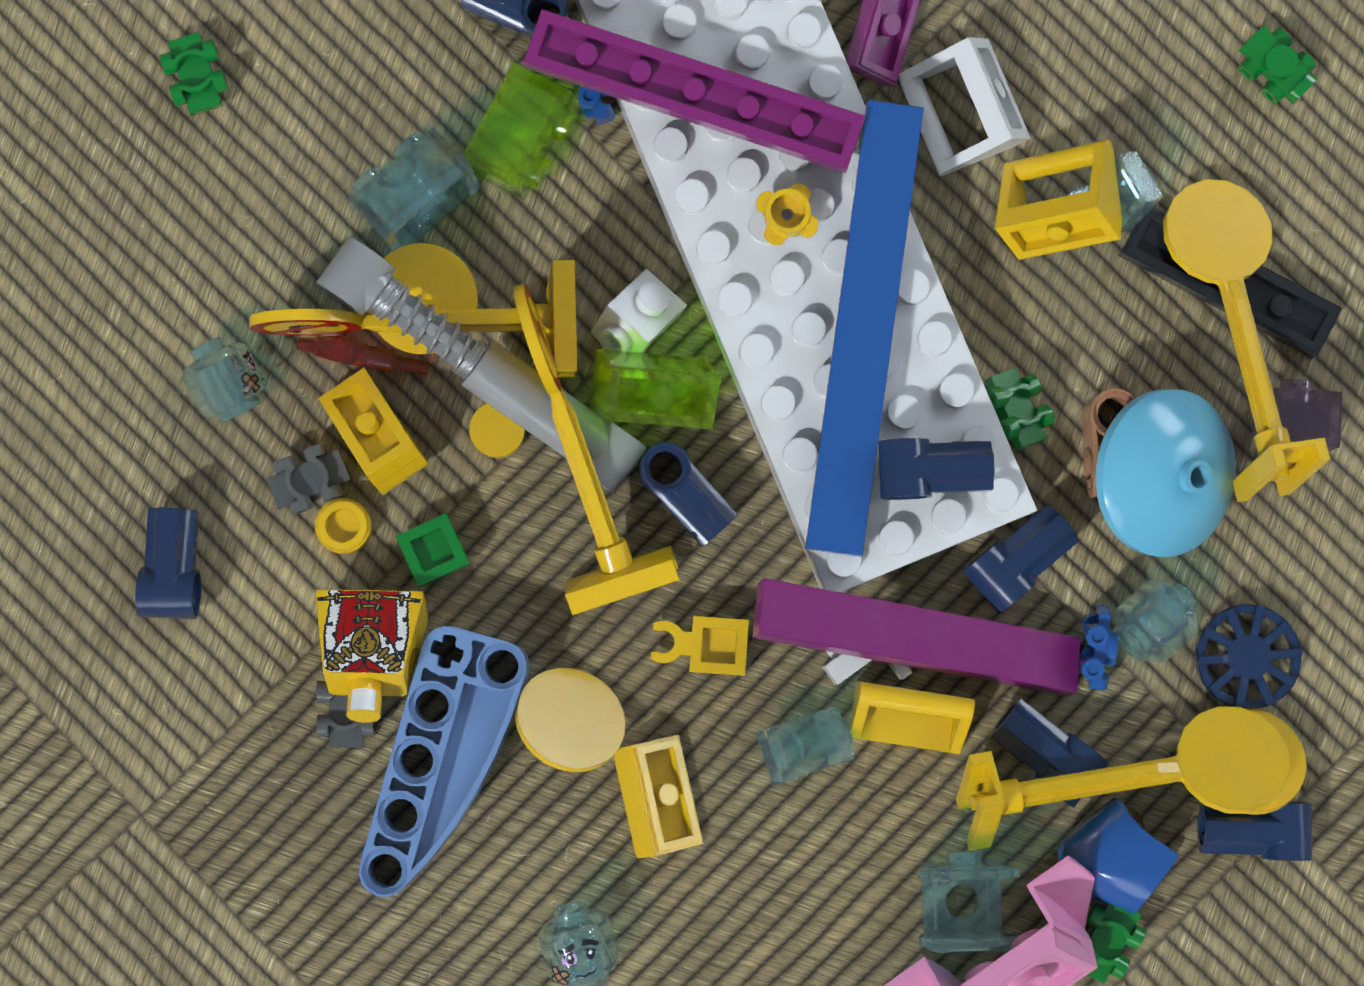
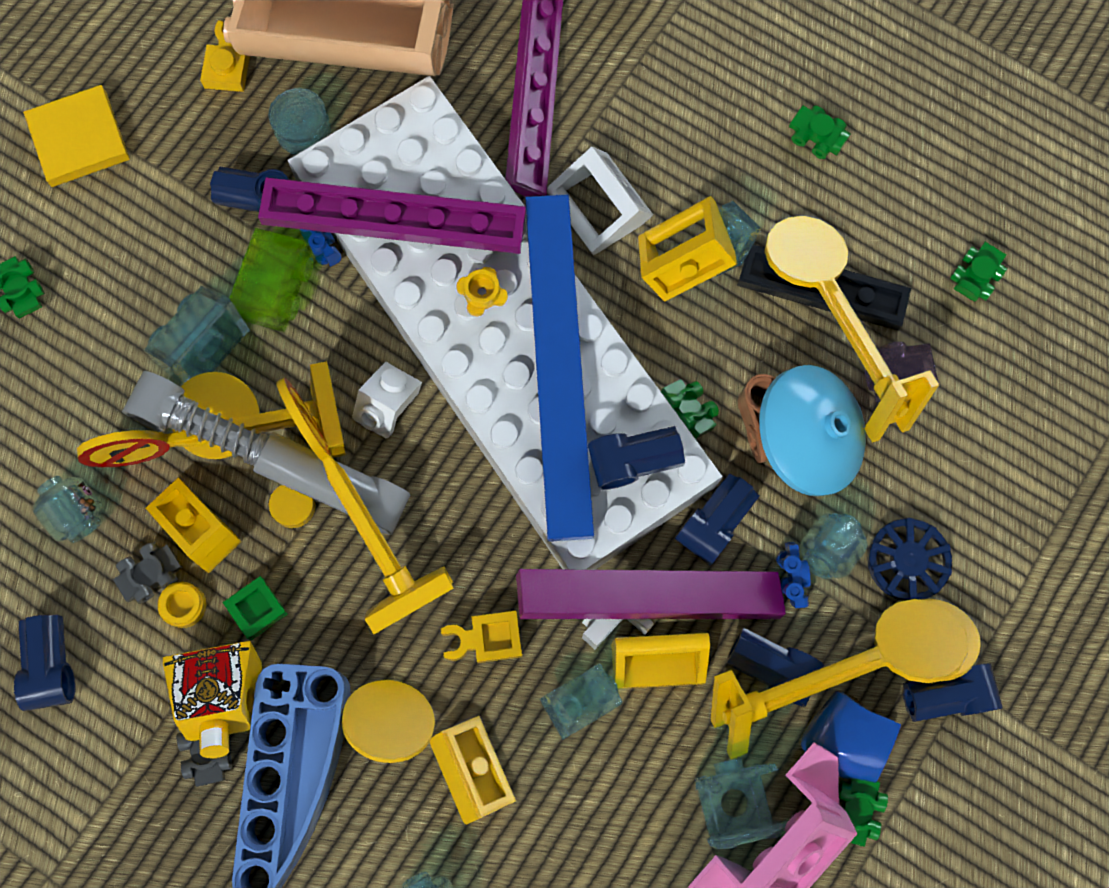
camera: 15 degrees left, 10 degrees down
(356, 353) = (174, 468): clear red hand -> none
(654, 389) = (406, 445): clear neon green brick -> none
(690, 497) = (450, 524): dark blue piece -> none

